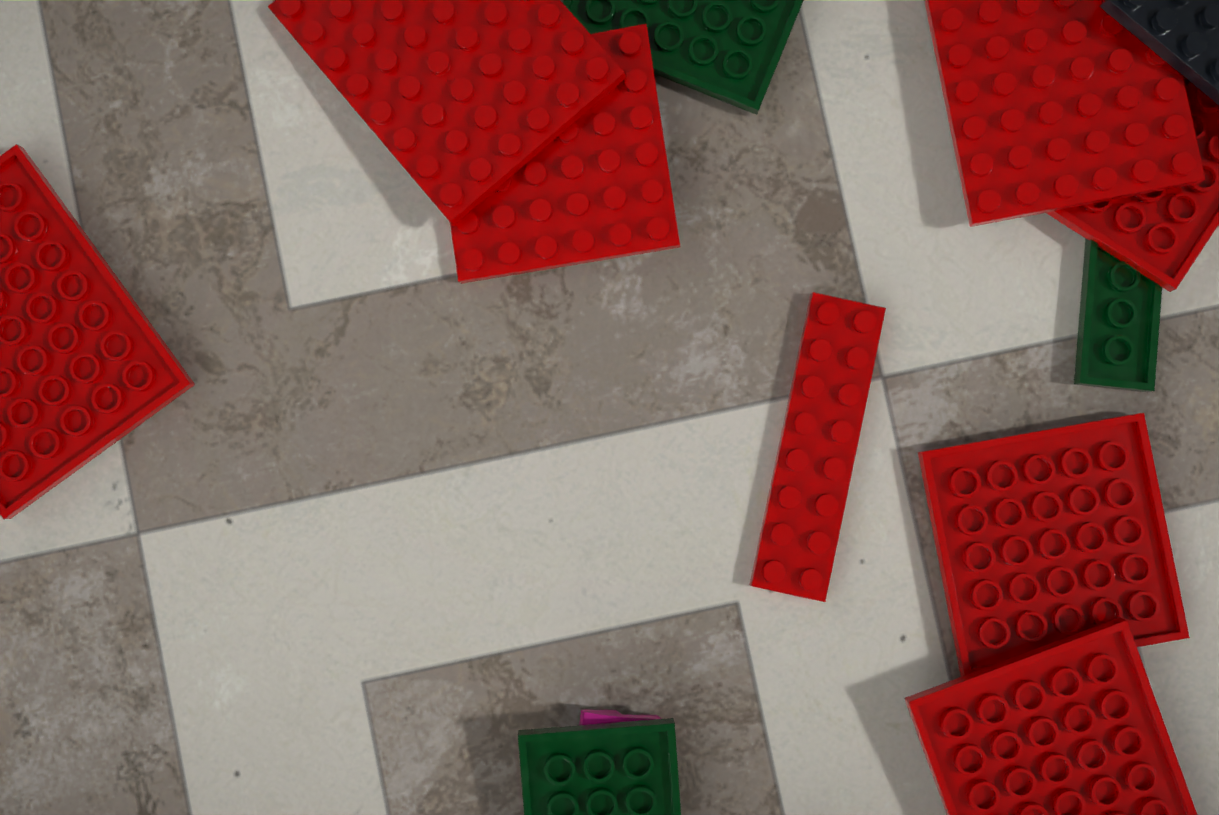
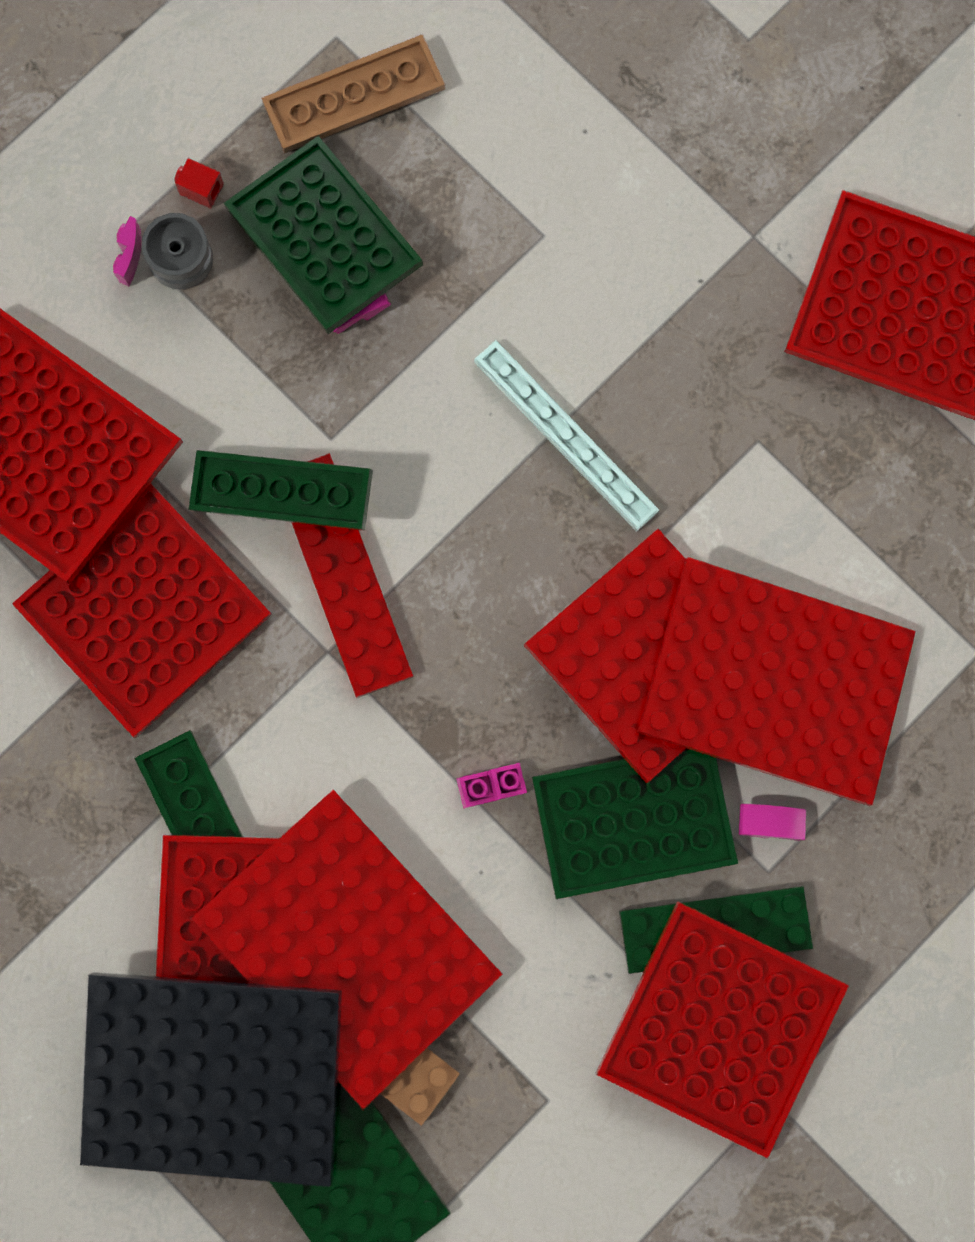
camera: 145 degrees right, 5 degrees down
(487, 445) = (566, 436): none -> light aqua tile
(802, 132) = (491, 785): none -> dark pink slope
(832, 574) = (280, 490): none -> dark green plate

